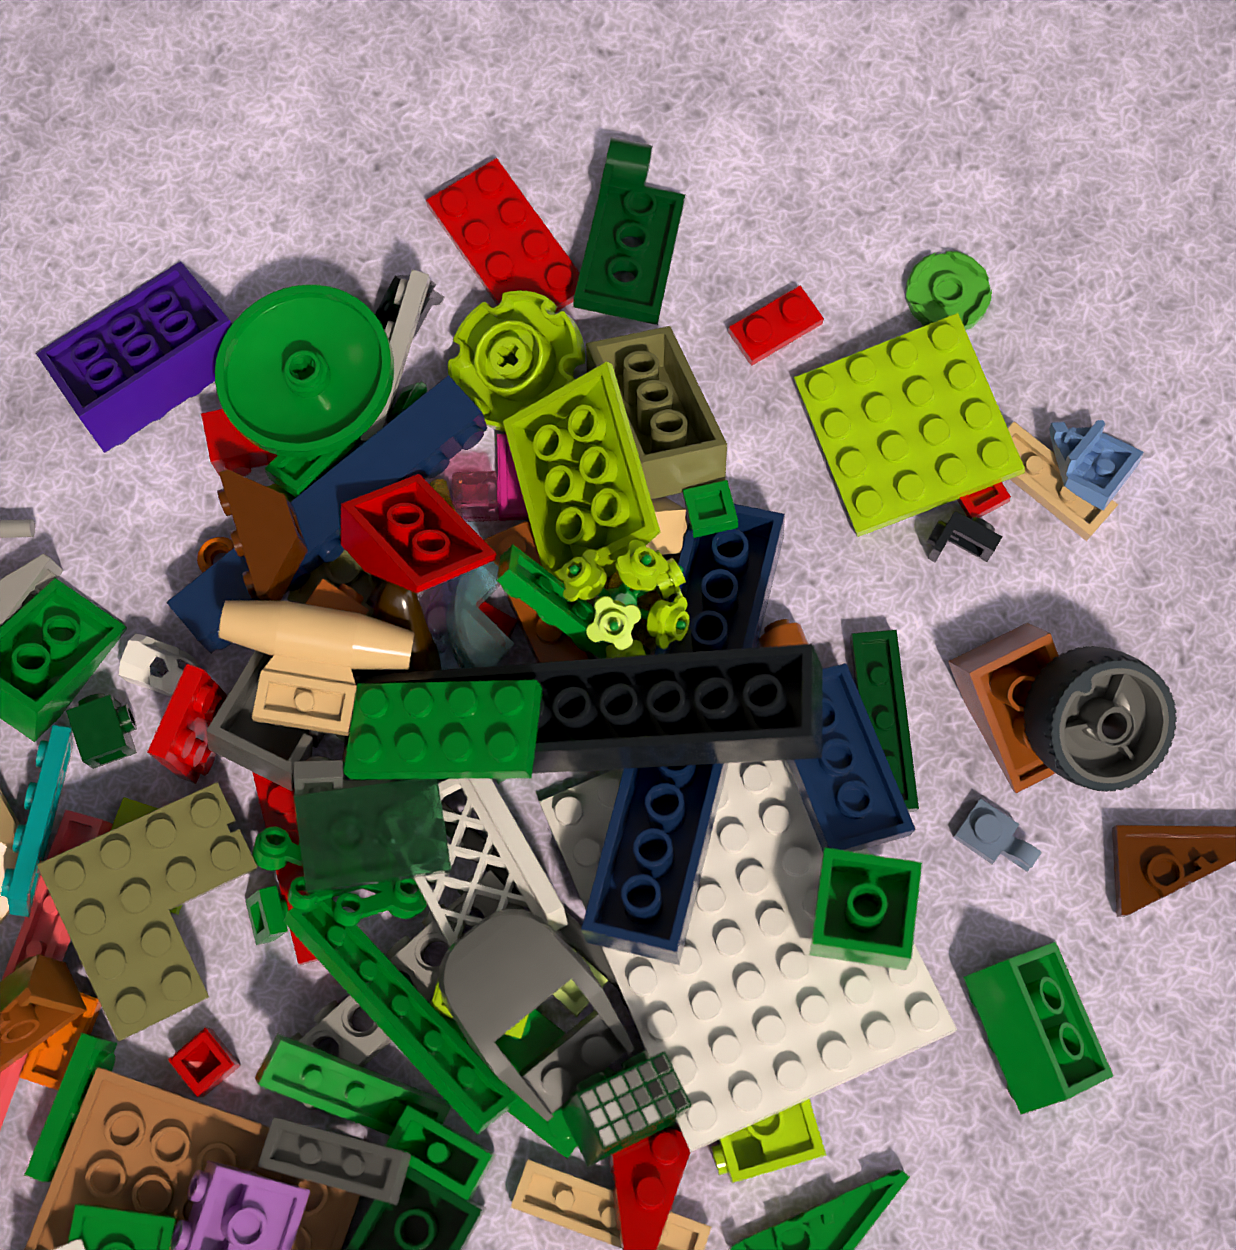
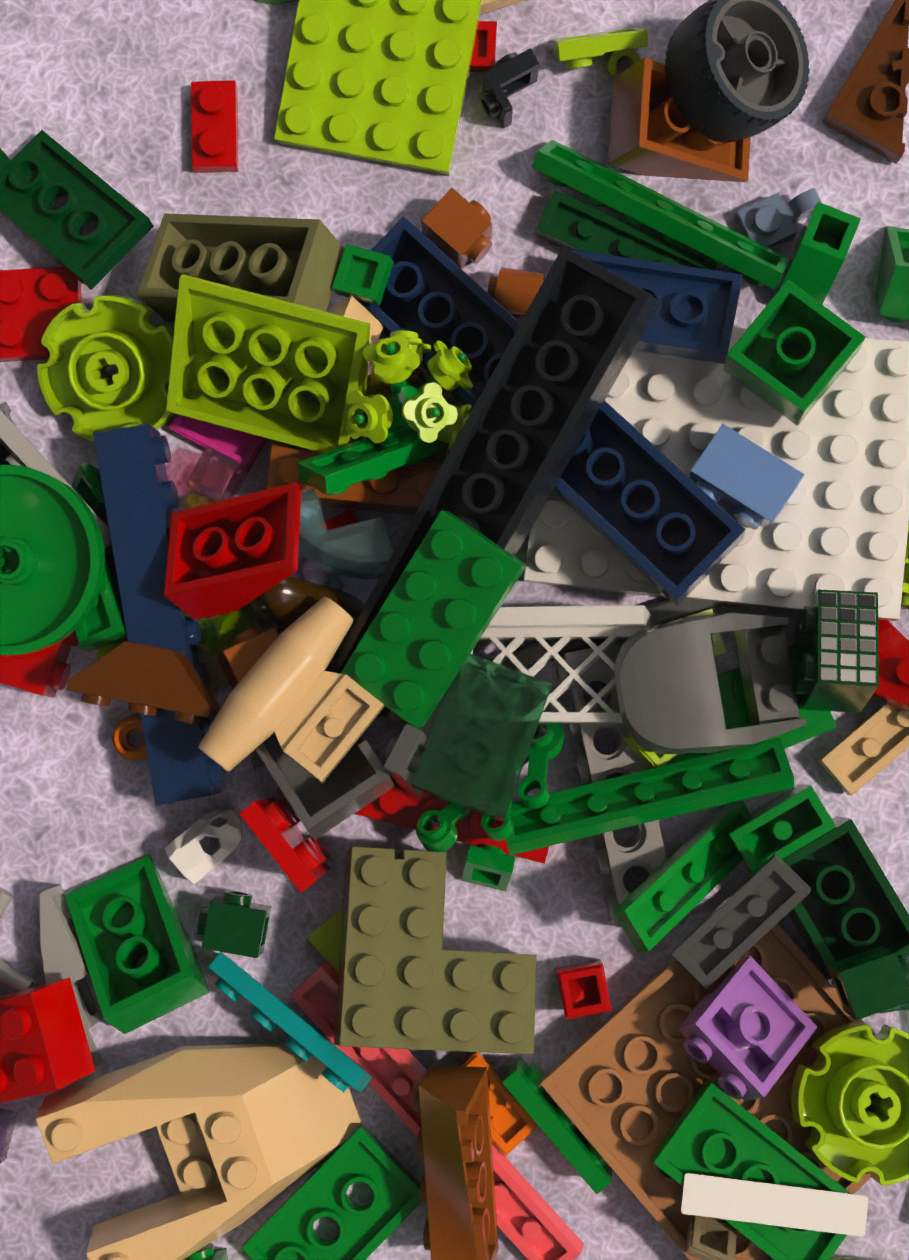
camera: 55 degrees left, 10 degrees up
(349, 572) = (223, 628): none -> clear neon green slope
(732, 933) = (745, 478): none -> medium blue brick
(812, 570) = (459, 228): none -> dark orange brick
(933, 734) = (647, 207): none -> green plate
(976, 891) = (820, 250): none -> green slope
(1036, 581) = (580, 49): none -> lime plate

